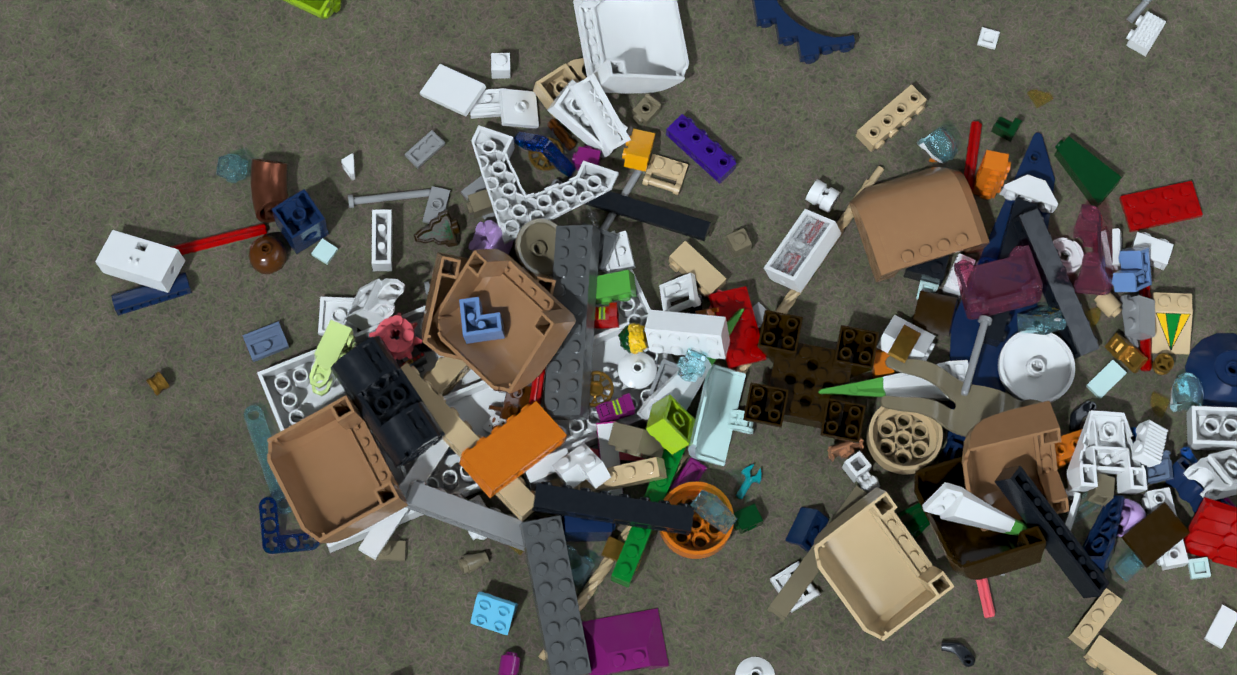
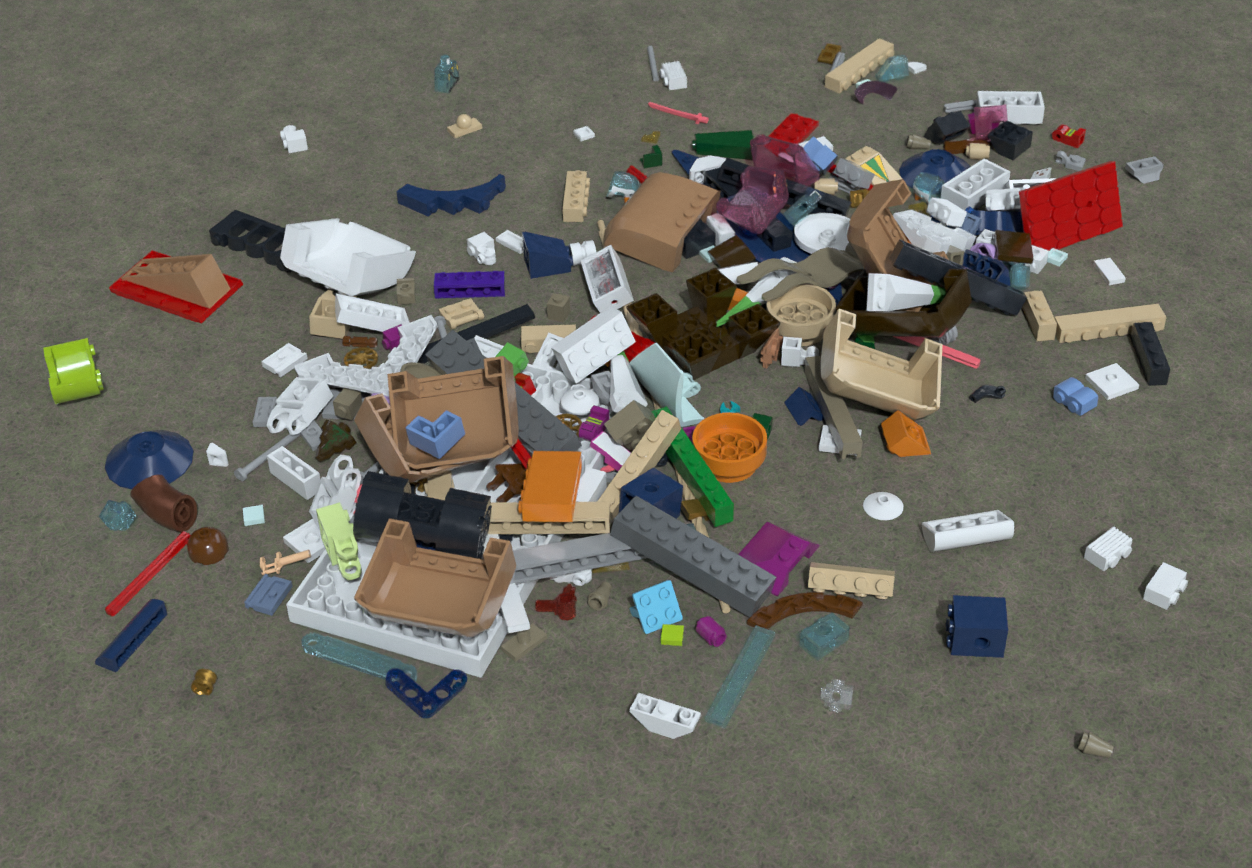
camera: 40 degrees left, 30 degrees down
(140, 261) = (100, 614): white brick -> none
(299, 318) = (280, 562): none -> light nougat piece
(300, 221) = (215, 498): dark blue brick -> none
(311, 136) = (149, 455): none -> dark blue dish
(446, 171) = (299, 404): none -> white brick
(446, 543) = (563, 605): none -> clear red axle
(452, 90) = (248, 368): white tile -> none
(484, 642) = (672, 635): none -> lime tile
(500, 65) = (270, 334): white brick -> none
(518, 108) = (311, 346): white plate -> none
(542, 144) = (360, 343): clear blue beam -> none
(581, 465) = (614, 459): white brick -> none
(599, 114) = (374, 303): white fence -> none
(613, 509) = (667, 465): black brick -> none
(633, 338) = (557, 381): yellow piece -> none
(638, 150) = (427, 306): light orange brick -> none
(670, 424) = (647, 391): lime brick -> none
(691, 365) = (619, 354): clear light blue brick -> none
(714, 511) = (737, 419): clear light blue slope -> none
(754, 110) = (482, 248): none -> white brick
(789, 173) = (545, 255): none -> dark blue slope
(790, 125) = (511, 241): none -> white tile
(842, 634) = (904, 436): none -> orange slope
(904, 343) = (737, 266): pearl gold slope -> none
(984, 322) = (770, 226): light grey bar -> none
(991, 174) = (676, 155): orange brick -> none
(1105, 111) = (698, 118): none -> coral sword

